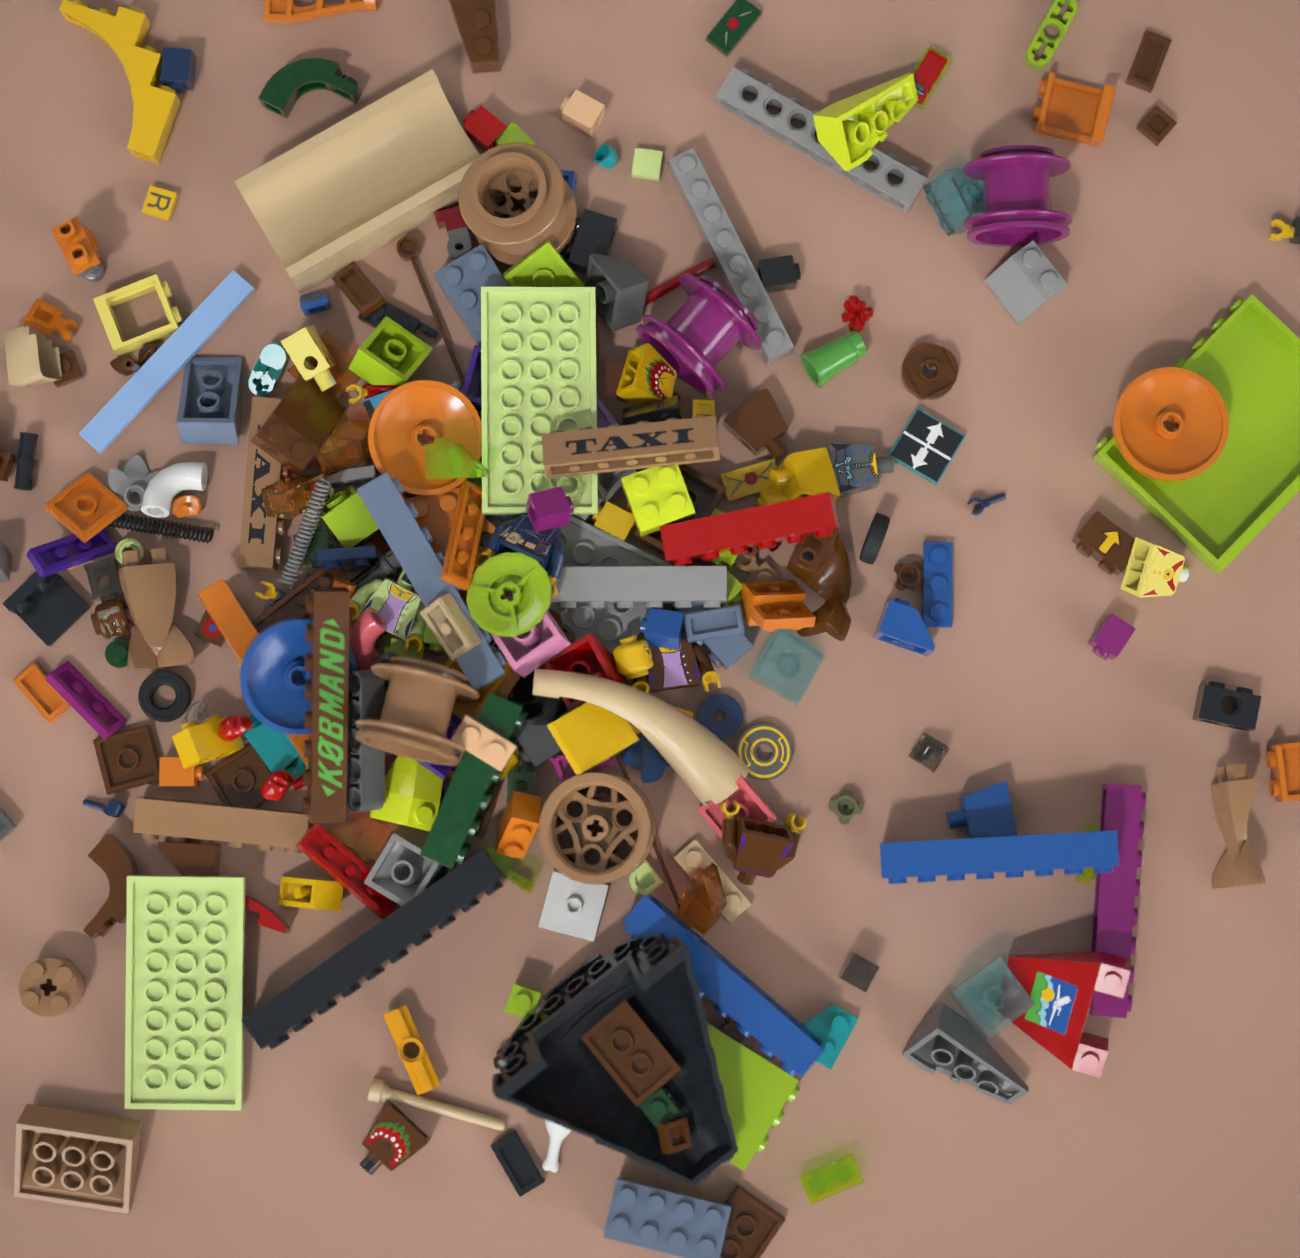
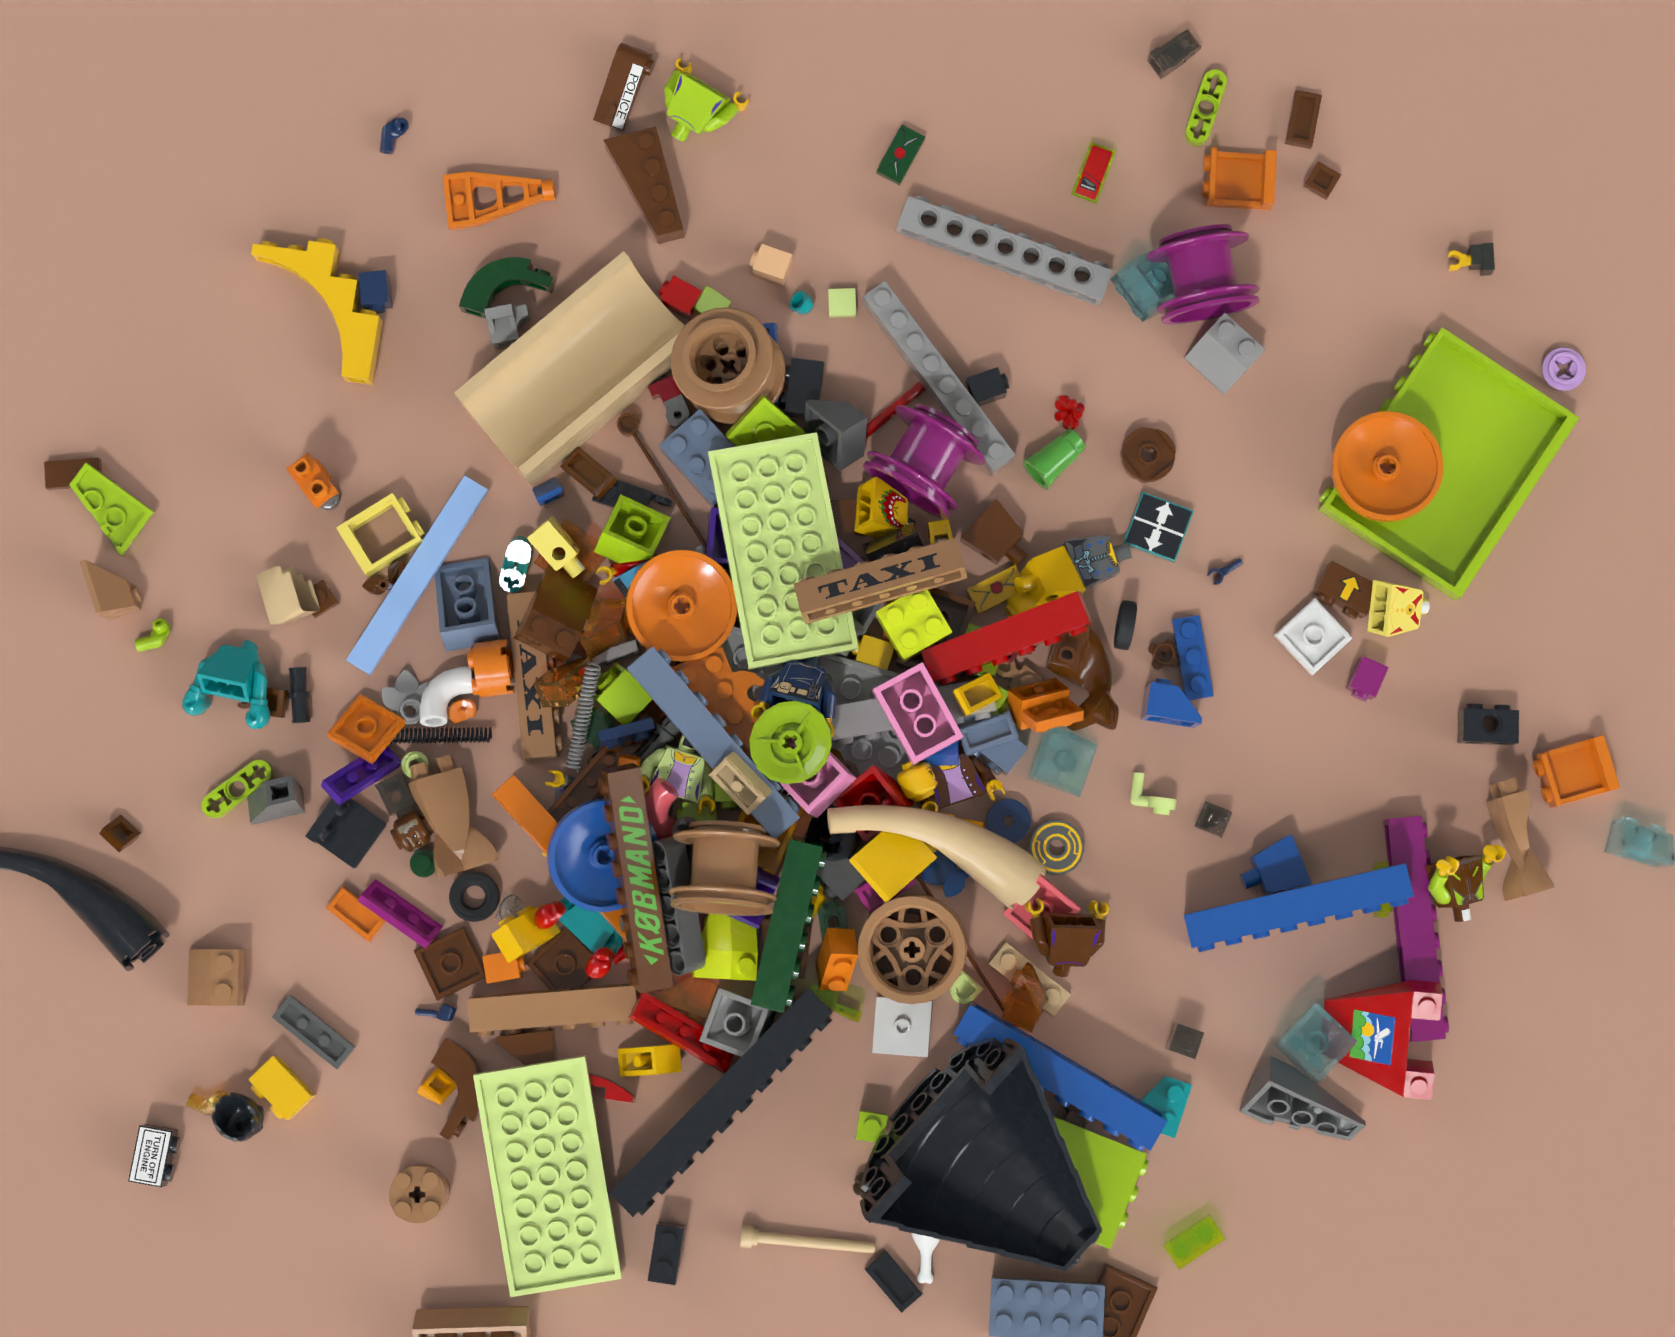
camera: 10 degrees left, 0 degrees up
(49, 318) = (294, 553): orange plate -> none
(91, 882) = (437, 1086): none -> light orange slope
(159, 203) = (381, 423): yellow tile -> none
(209, 631) = (506, 825): tile -> none
(223, 468) = (492, 668): none -> orange brick
(291, 1093) = (666, 1253): none -> black brick
(303, 123) = (506, 323): none -> light grey brick
(392, 1140) = (770, 1281): reddish brown torso -> none
(420, 1067) = (784, 1207): light orange piece -> none
(451, 461) = (712, 624): clear neon green slope -> none
(464, 537) = (736, 694): orange tile -> none
(484, 743) = (793, 888): light nougat plate -> none
(549, 509) = (813, 654): magenta brick -> none
(631, 1052) = (984, 1156): reddish brown plate -> none
(644, 588) = (917, 713): none -> bright pink brick
(660, 1107) = (1020, 1203): dark green plate -> none
(674, 1135) = (1039, 1227): reddish brown plate -> none
(708, 580) = (976, 694): none -> yellow slope
(853, 807) = (1151, 885): olive plate -> none
(858, 122) = (1039, 228): neon yellow wedge -> none
(877, 727) = (1159, 804): none -> yellowish green plate
(1064, 585) = (1313, 636): none -> white plate
(1170, 859) = (1461, 879): none -> torso

